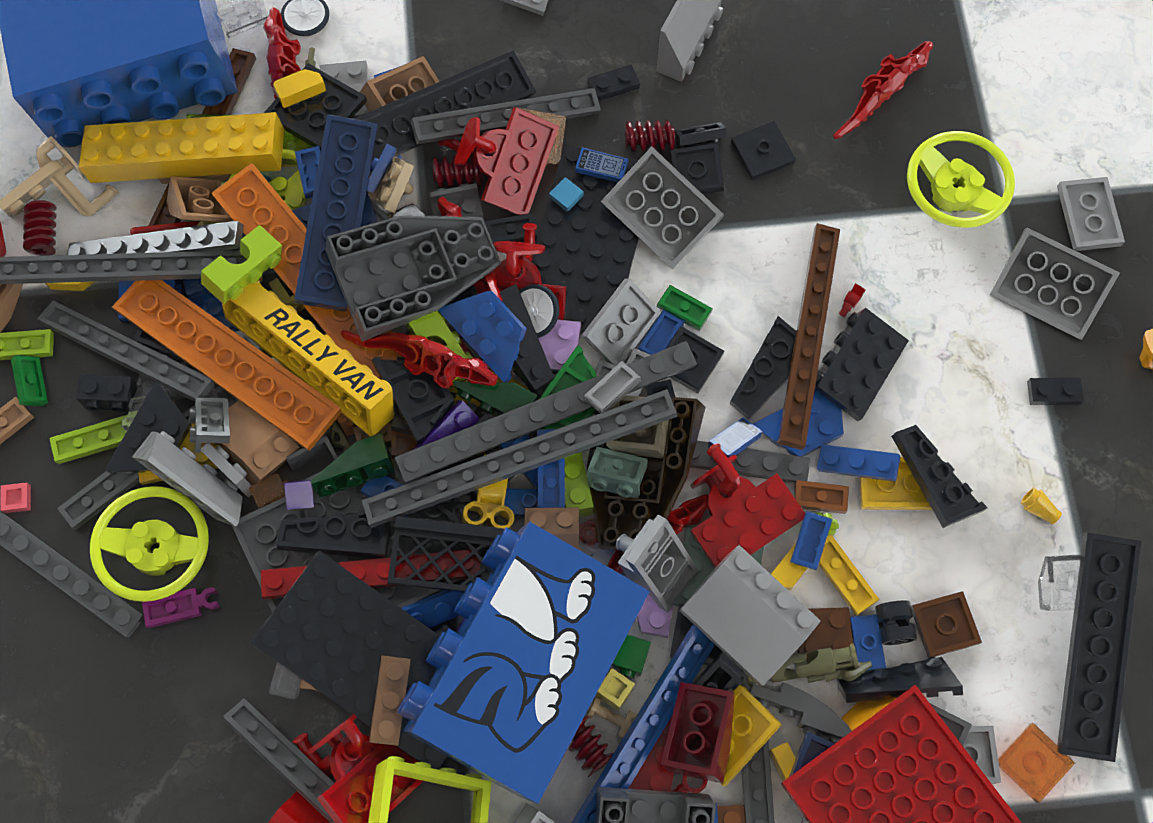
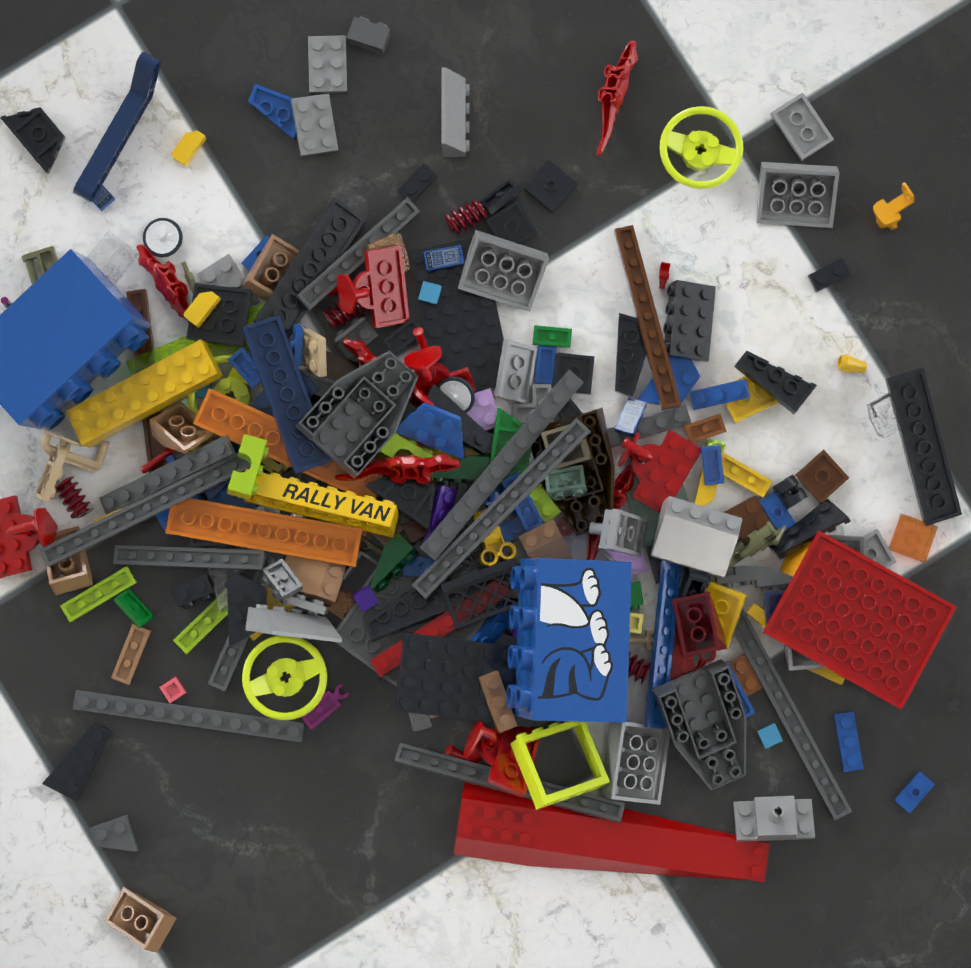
camera: 20 degrees left, 15 degrees up
(612, 388) = (538, 430): light grey tile -> none

